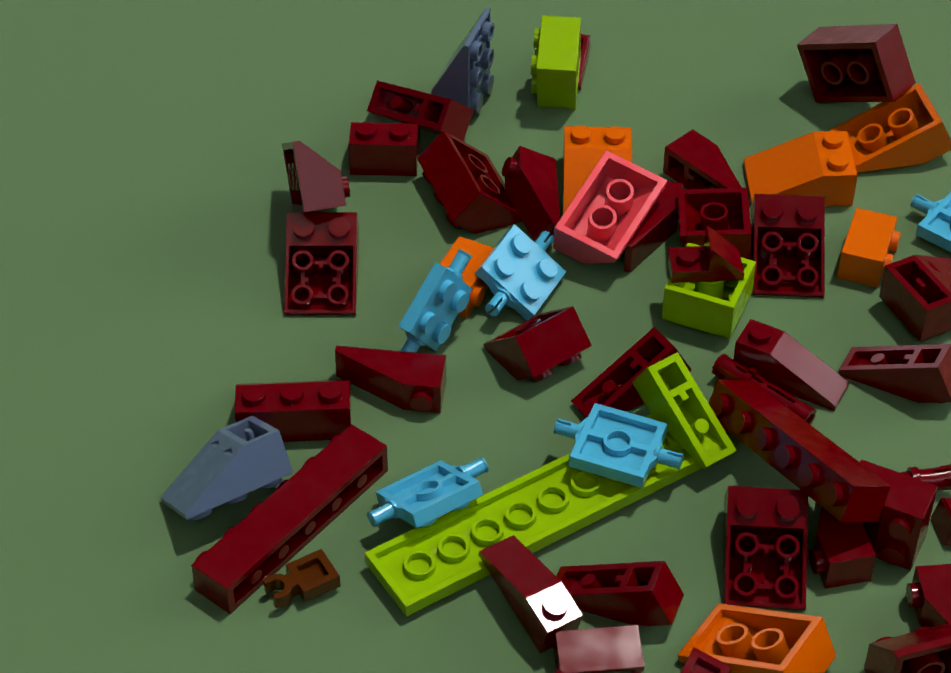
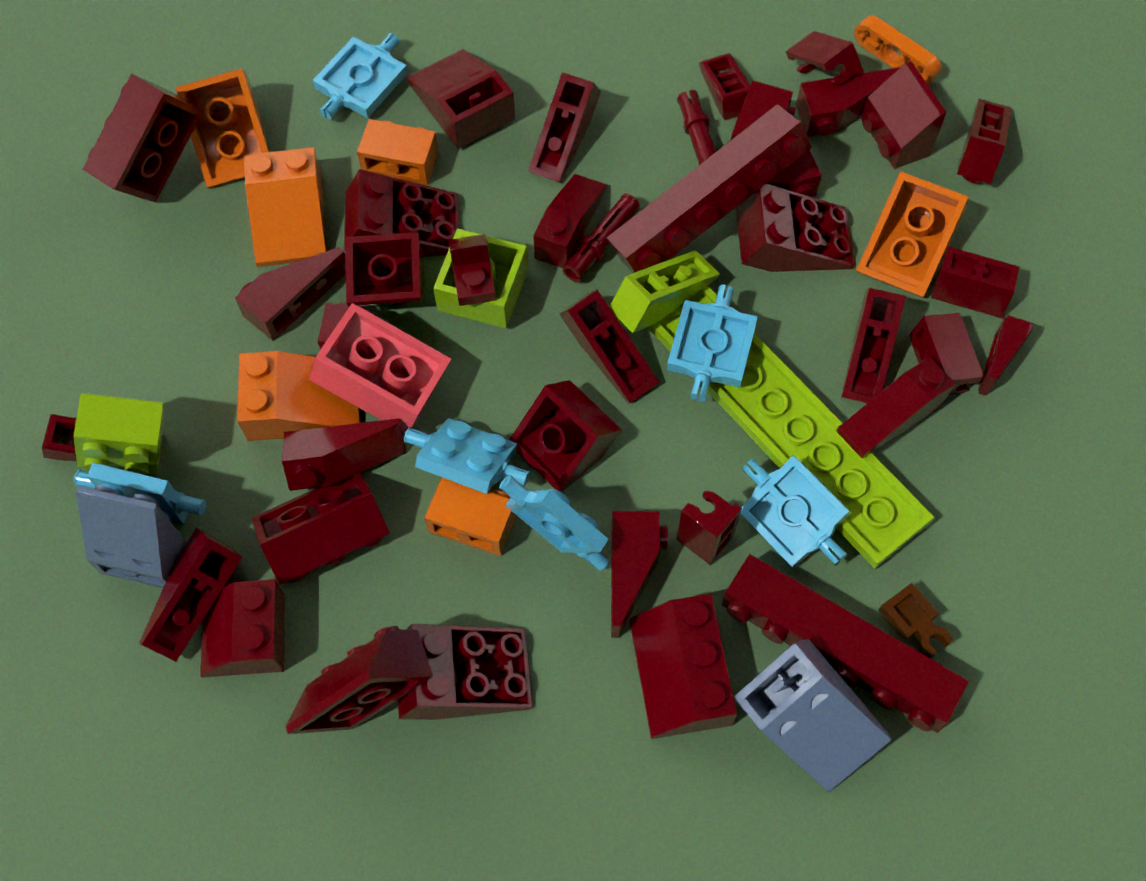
camera: 95 degrees left, 20 degrees up
(412, 419) = (708, 532): none -> dark red hinge
(506, 77) = (128, 483): none -> medium azure plate

